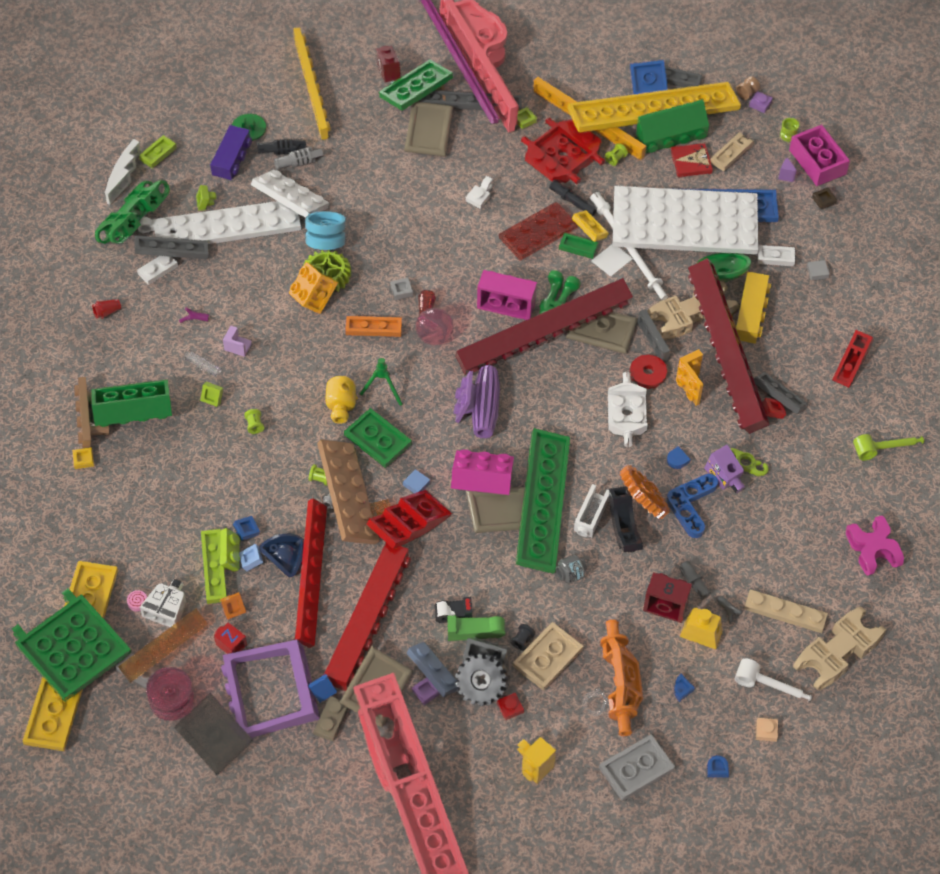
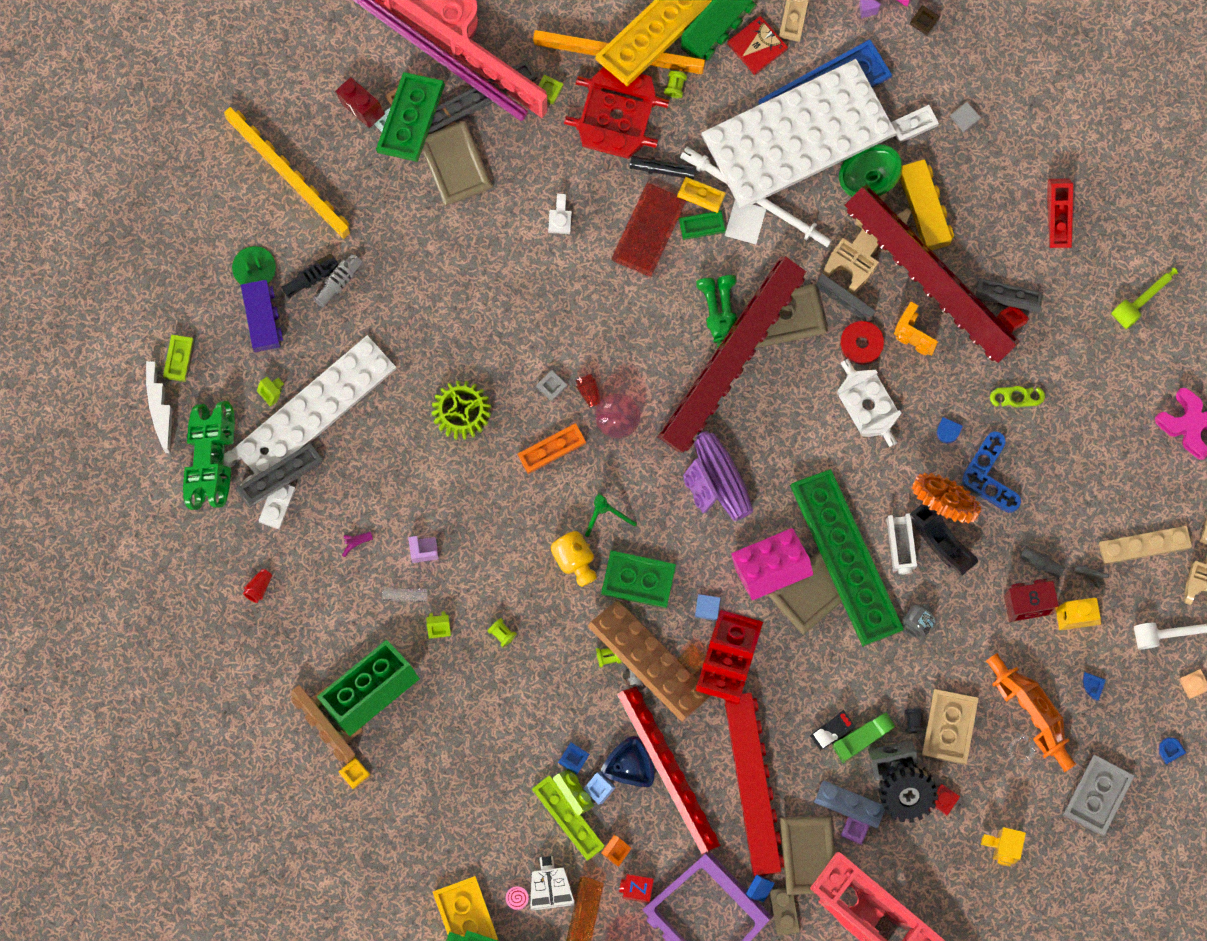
camera: 30 degrees left, 20 degrees up
(289, 193) = (360, 334): white plate -> none
(312, 288) = (461, 443): light orange bracket -> none
(325, 230) = (432, 363): medium azure wheel -> none
(506, 295) = (670, 336): dark pink brick -> none
(726, 469) = (1007, 421): medium lavender torso -> none

